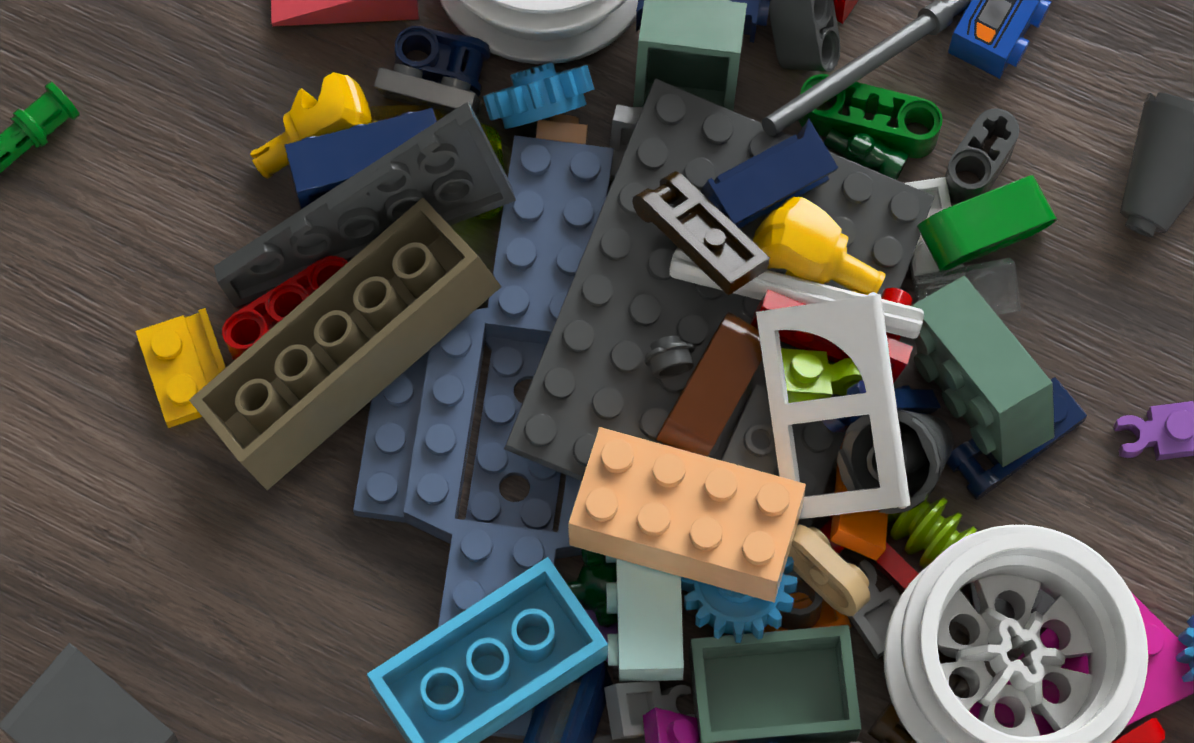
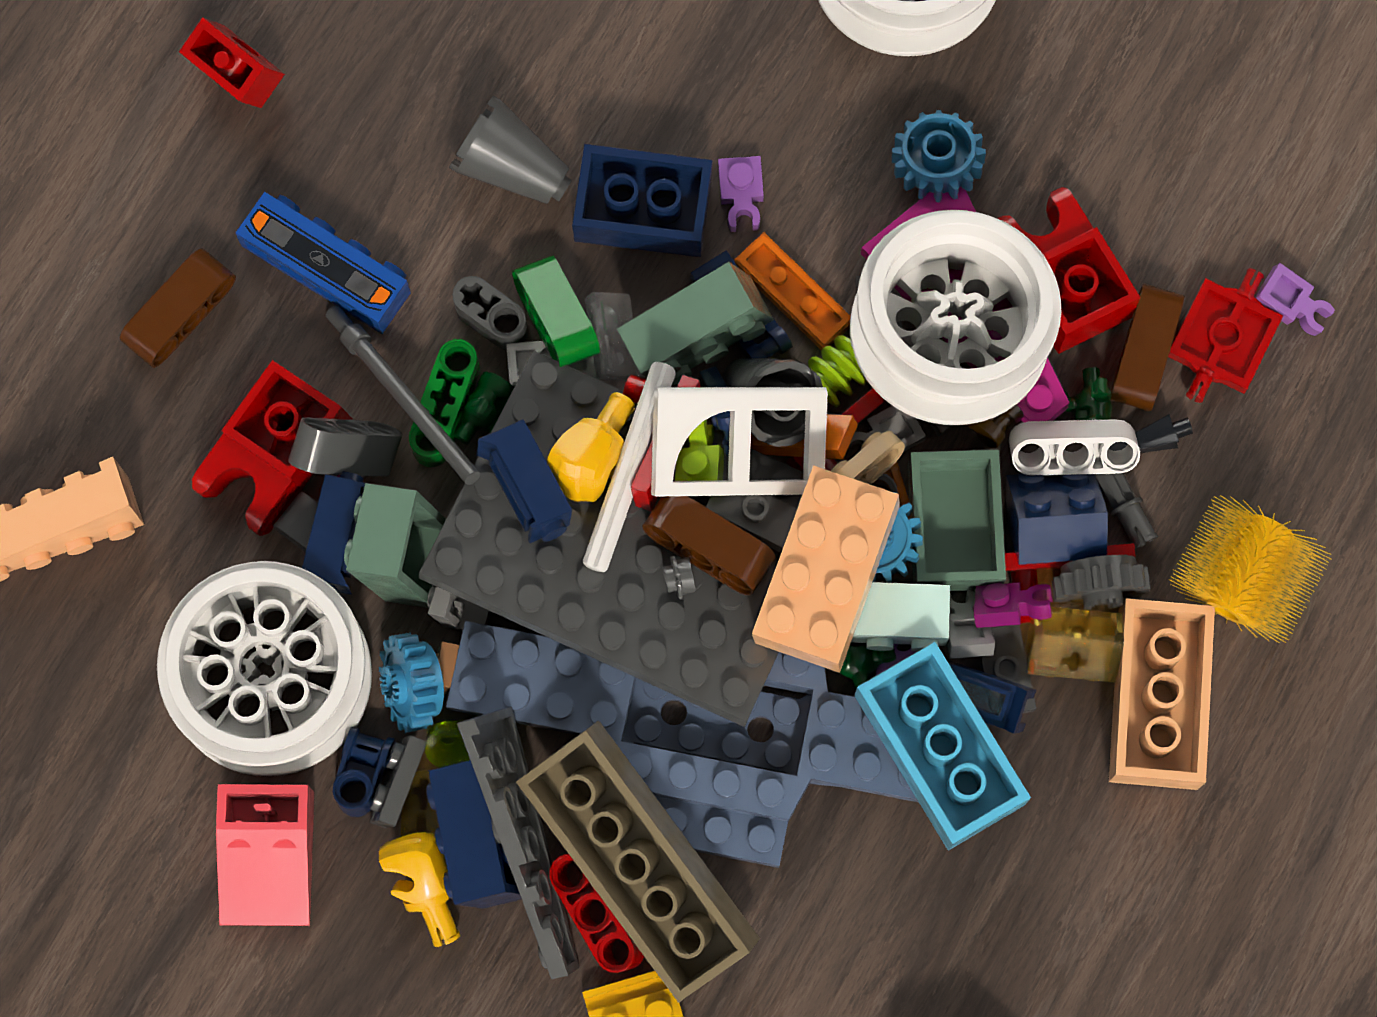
camera: 85 degrees left, 5 degrees up
(702, 232) = (575, 538): plate -> none
(1056, 483) = (793, 291): none -> orange tile
(1134, 312) = (642, 200): none -> dark blue brick

